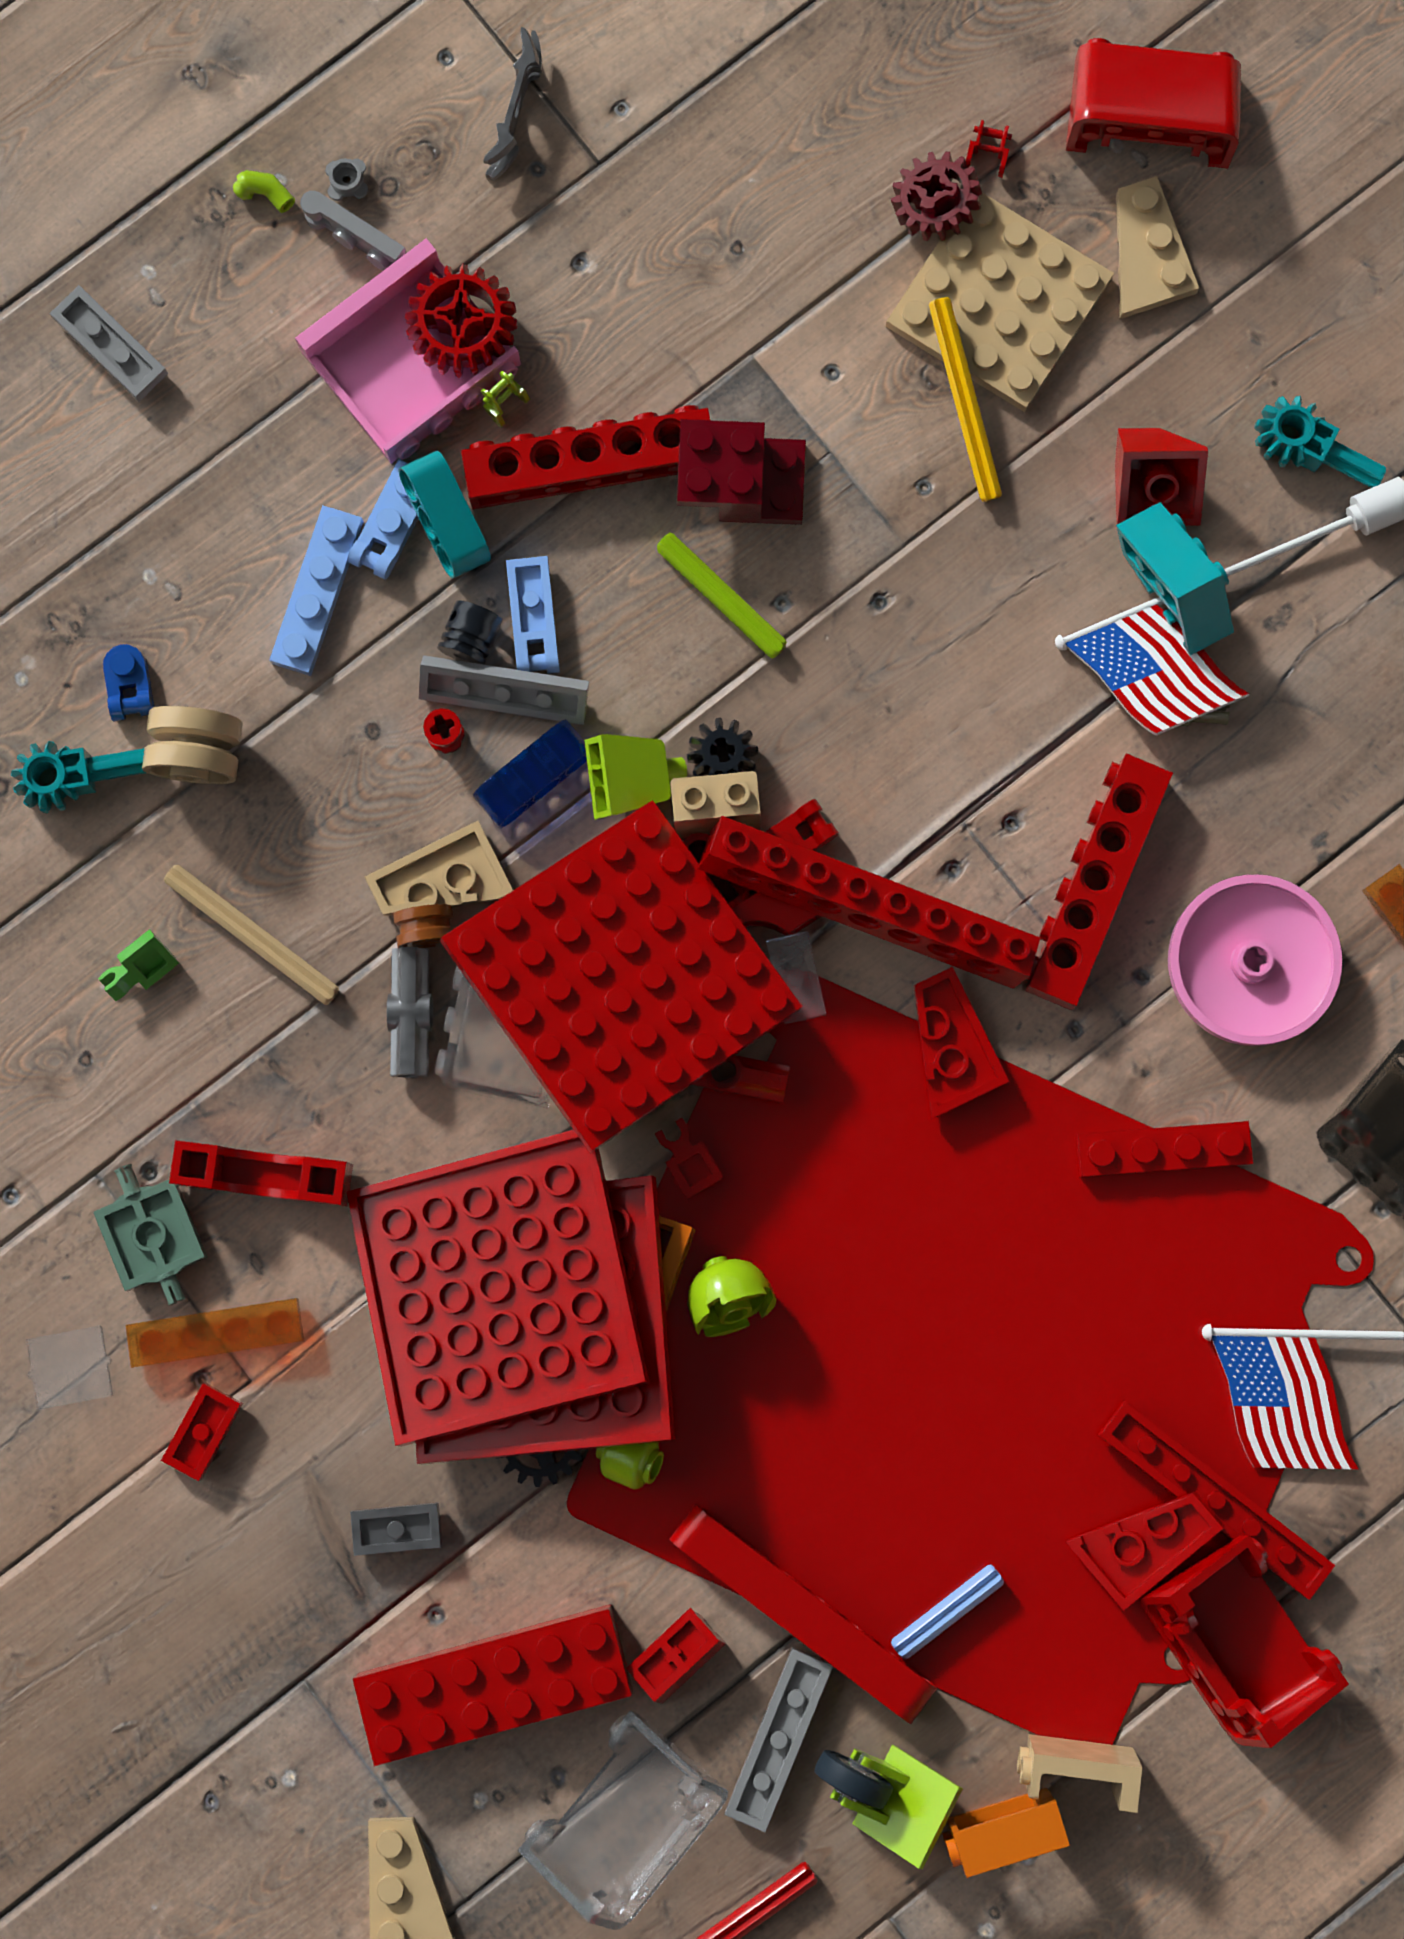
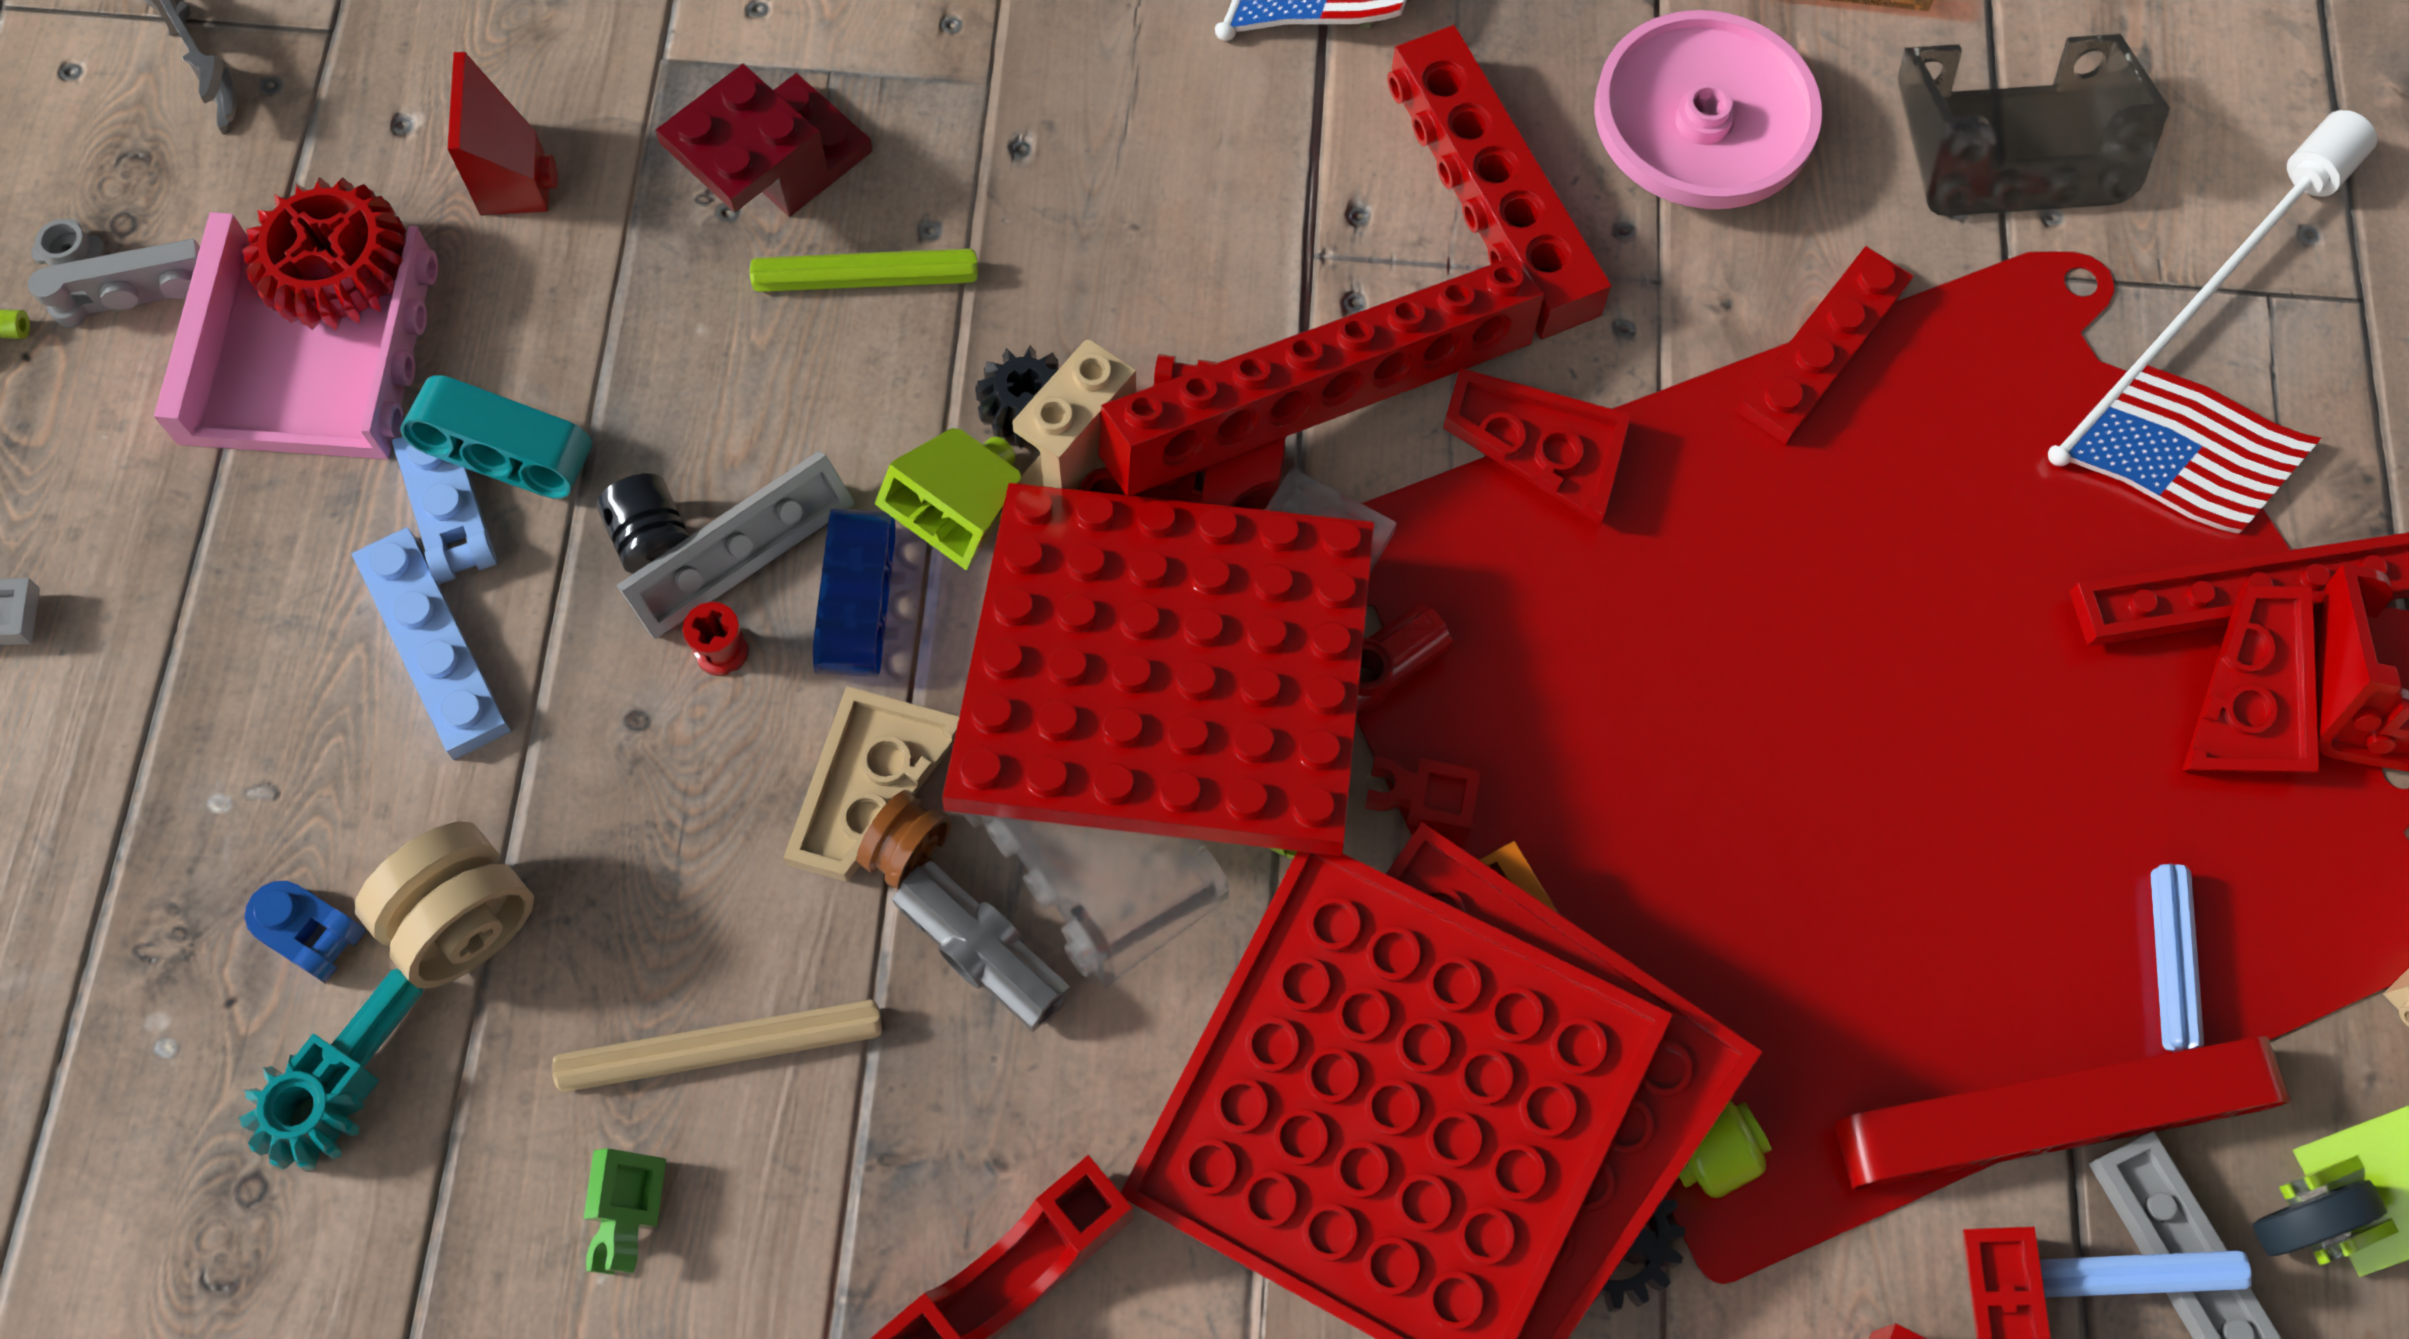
camera: 55 degrees left, 15 degrees down
(492, 405) = (445, 304): lime piece -> none
(532, 613) = (689, 449): light blue plate -> none
(571, 474) = (588, 292): red brick -> none
(600, 337) = (495, 146): none -> red slope
(727, 1295) = (1619, 874): lime cylinder -> none
(747, 1712) = (2146, 1274): none -> light blue axle

